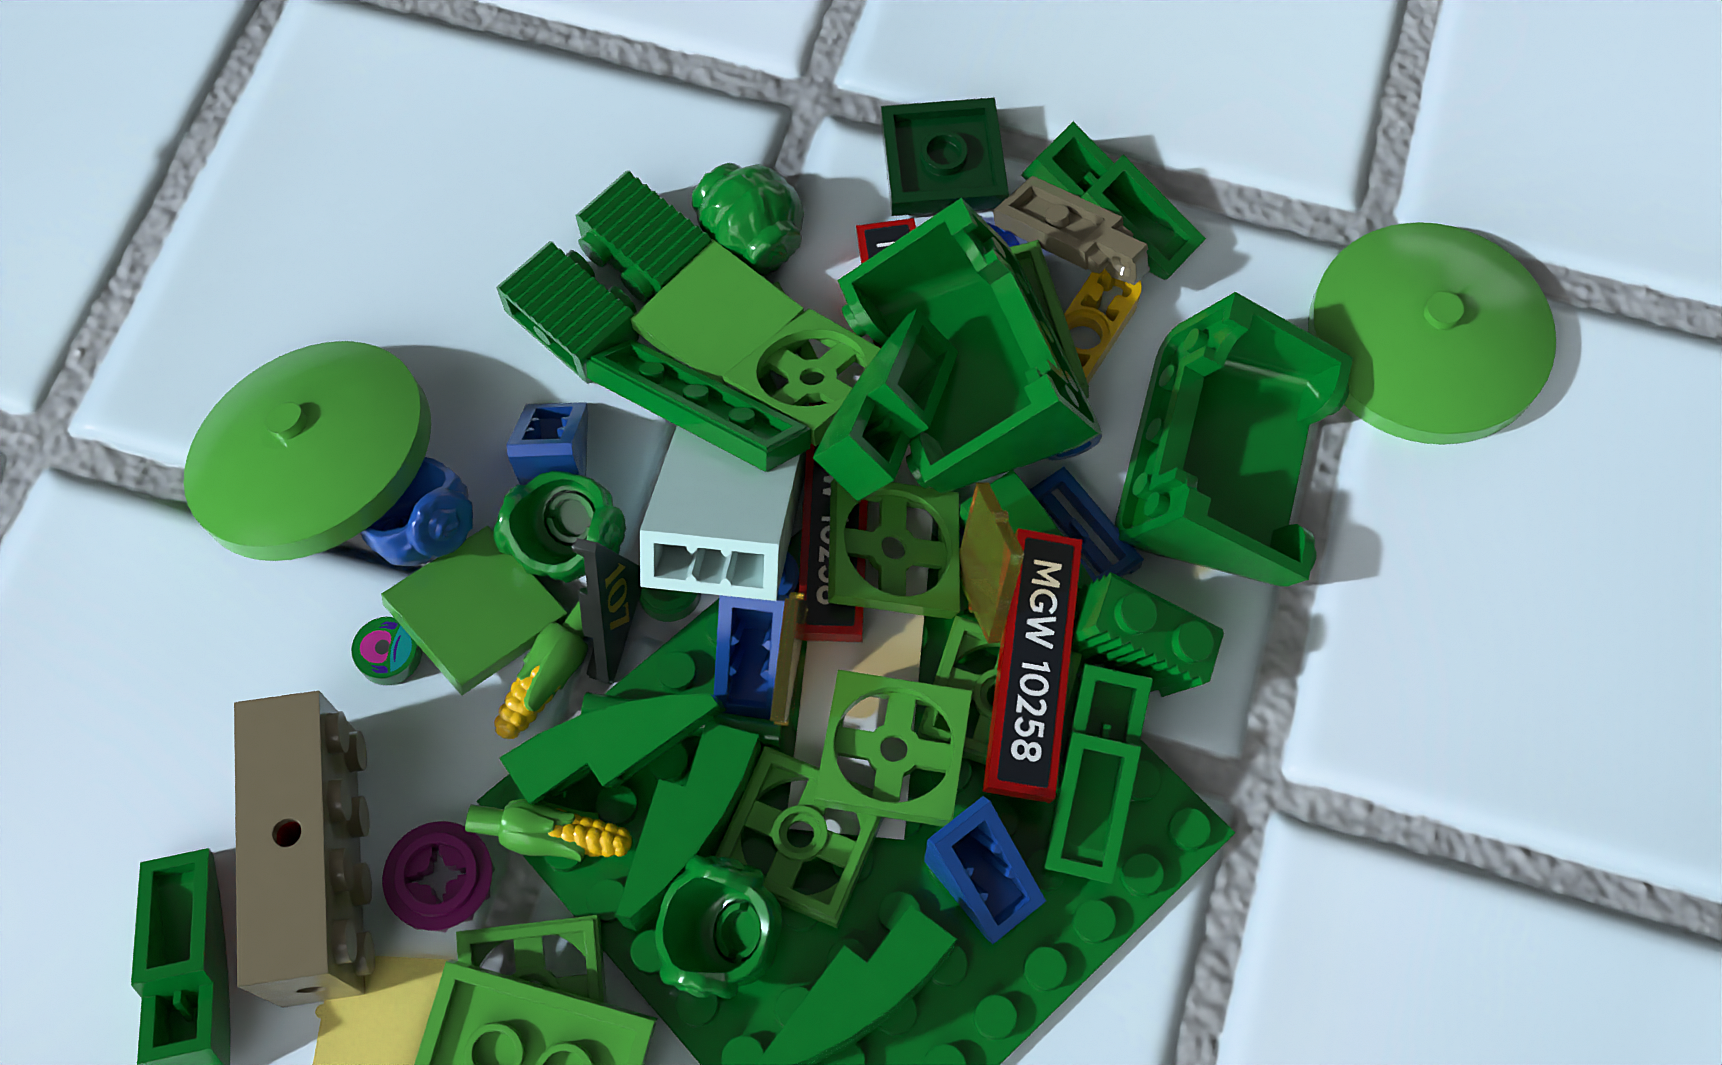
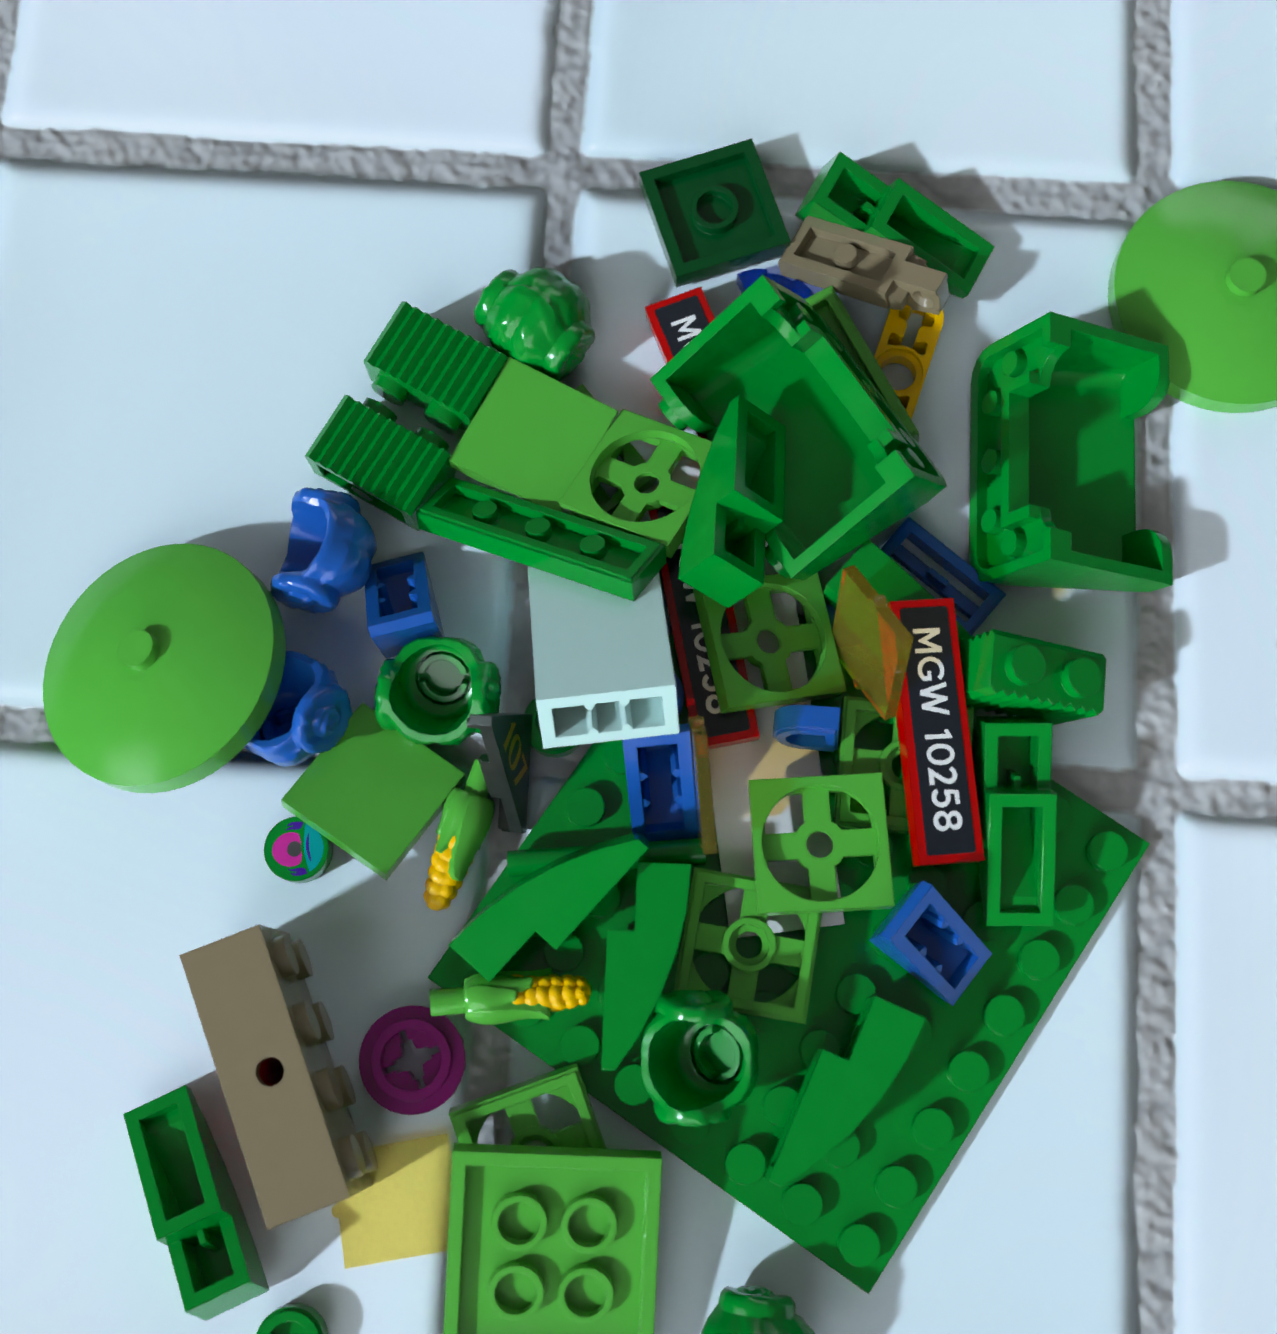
camera: 10 degrees left, 10 degrees up
(493, 380) = (326, 551): none -> blue hair
(912, 635) = (807, 727): none -> blue tile

